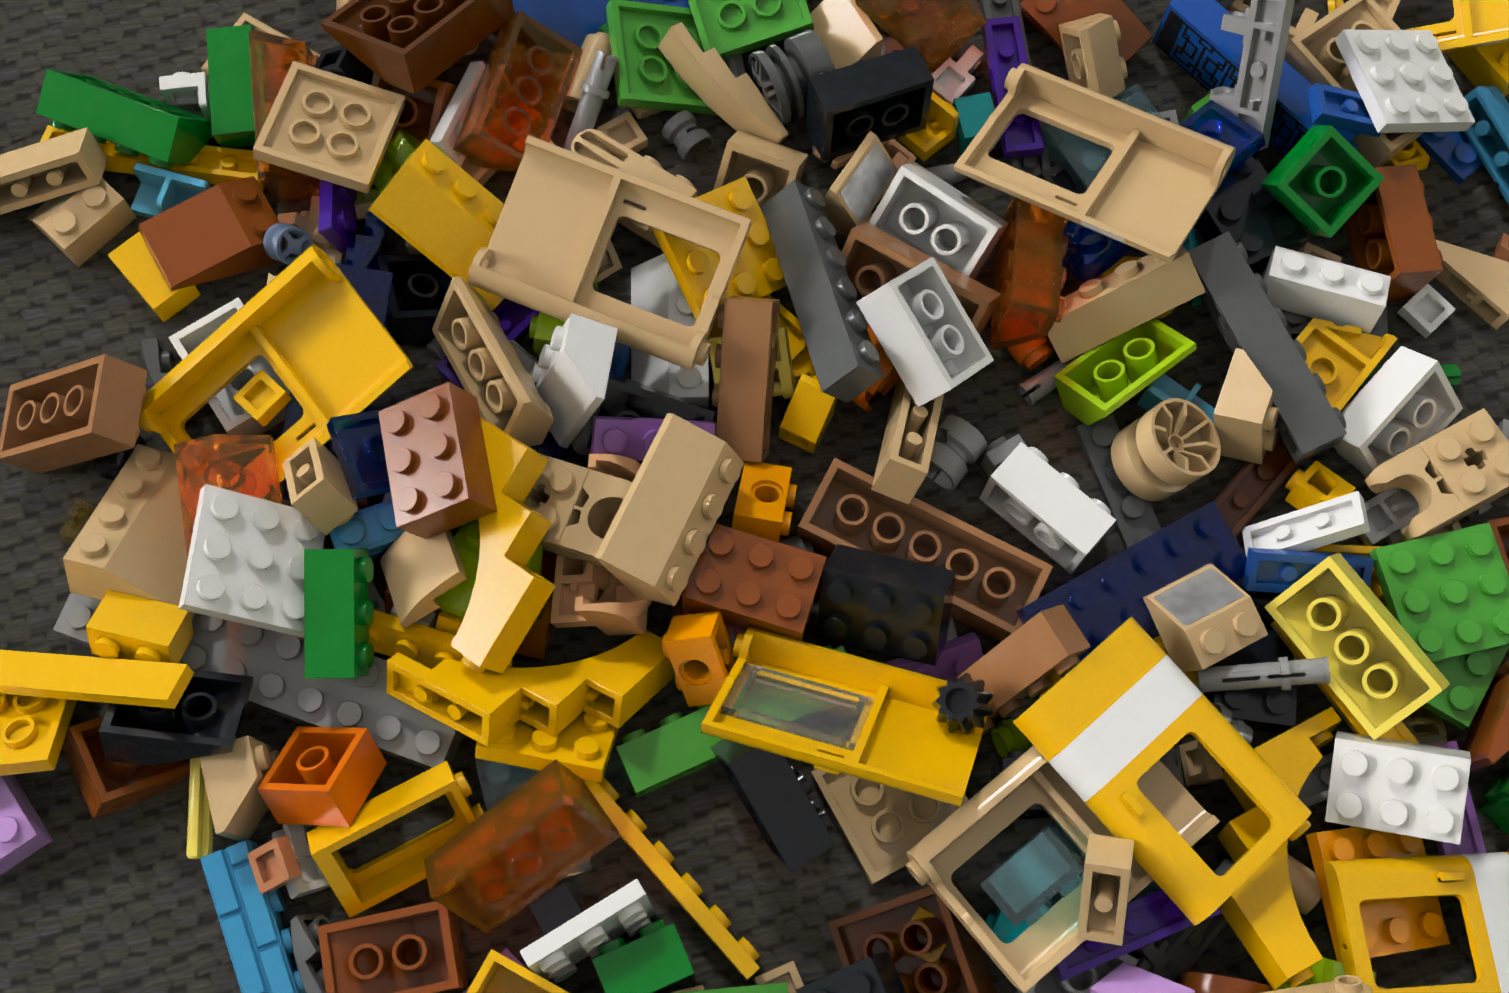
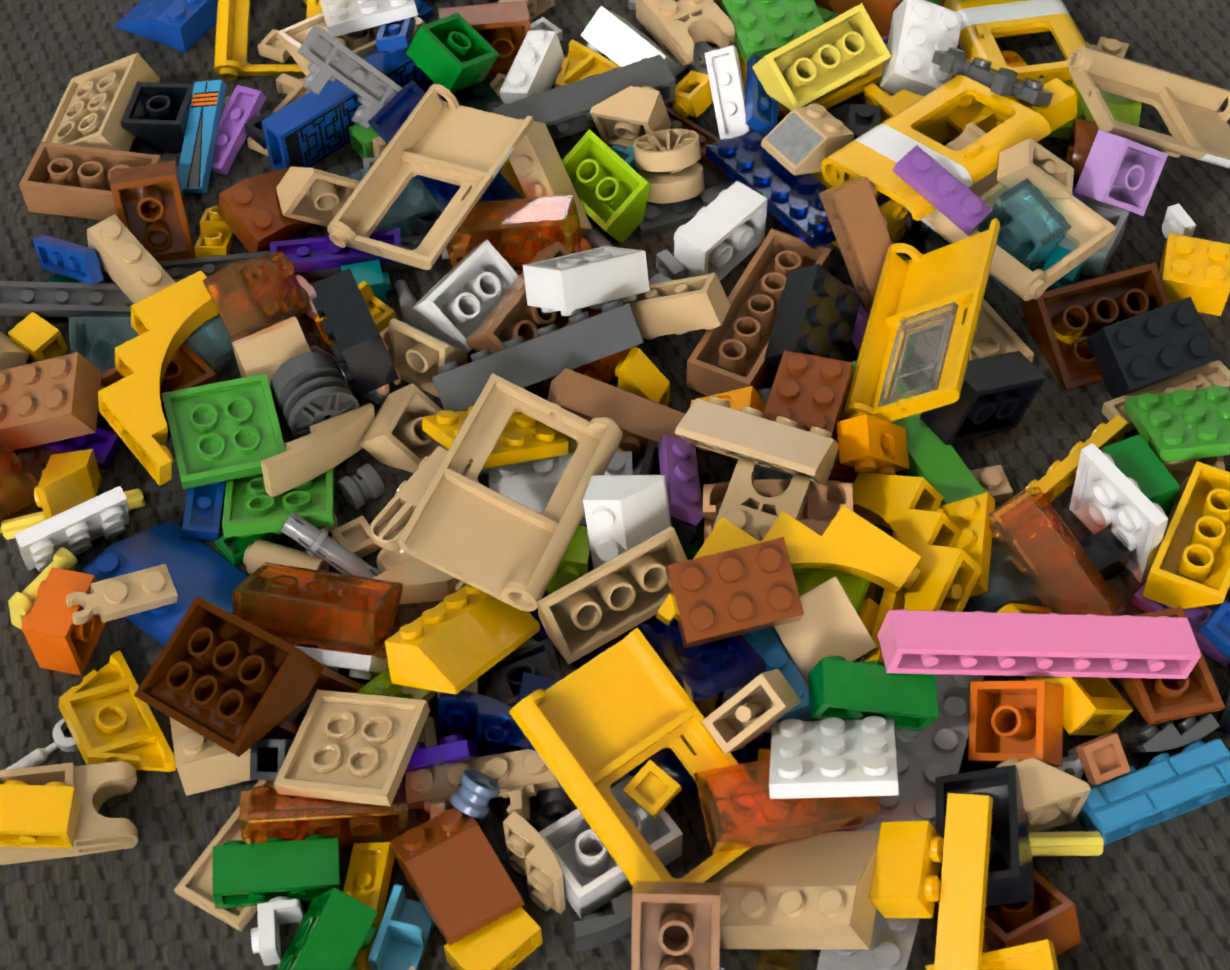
camera: 85 degrees left, 20 degrees down
(200, 301) = (533, 857): none -> tan slope
(377, 797) = (1037, 644): none -> bright pink brick
(680, 806) = (994, 482): none -> tan plate
(963, 703) = (902, 258): black piece -> none
(1051, 751) = (942, 190): none -> medium lavender plate
(1262, 675) = (849, 98): light grey pin -> none
(1312, 864) = (1001, 82): none -> dark grey hinge

